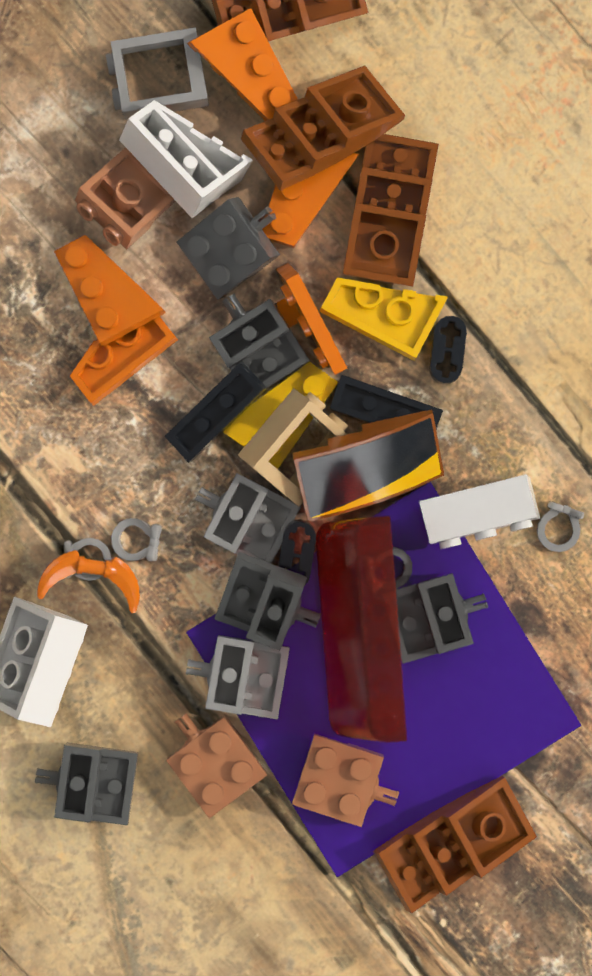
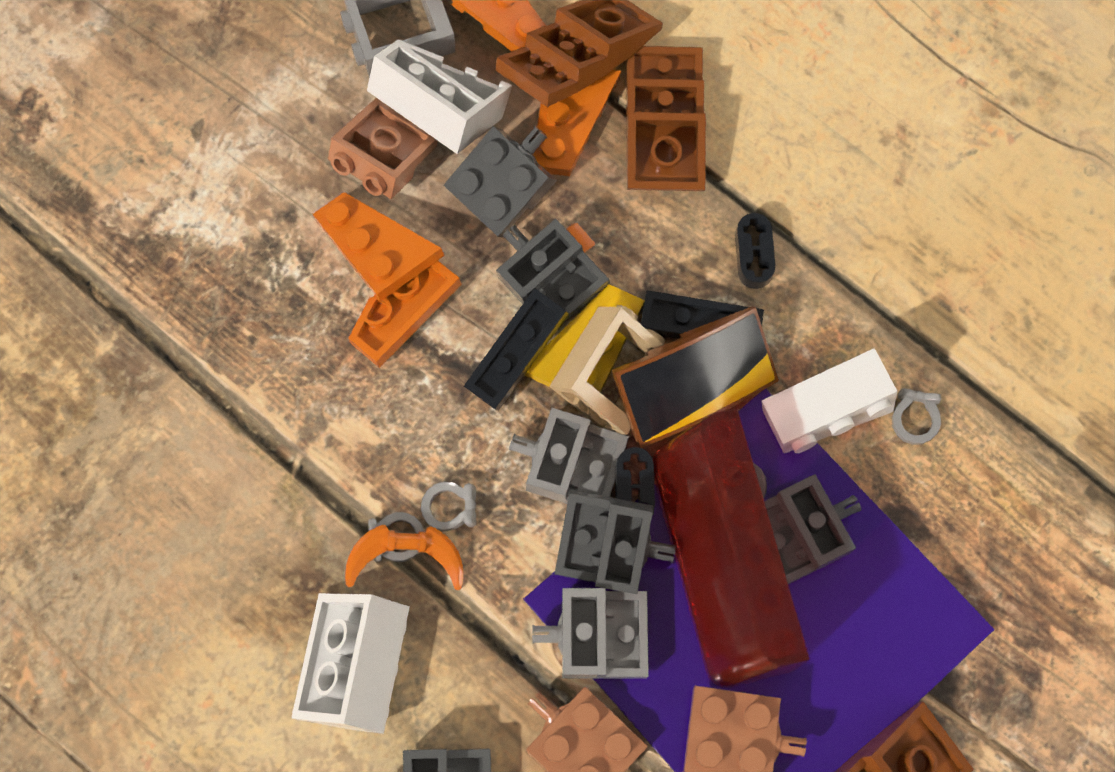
camera: 10 degrees left, 15 degrees down
(310, 319) = (604, 237): orange wing -> none
(384, 314) = (680, 225): yellow wing -> none

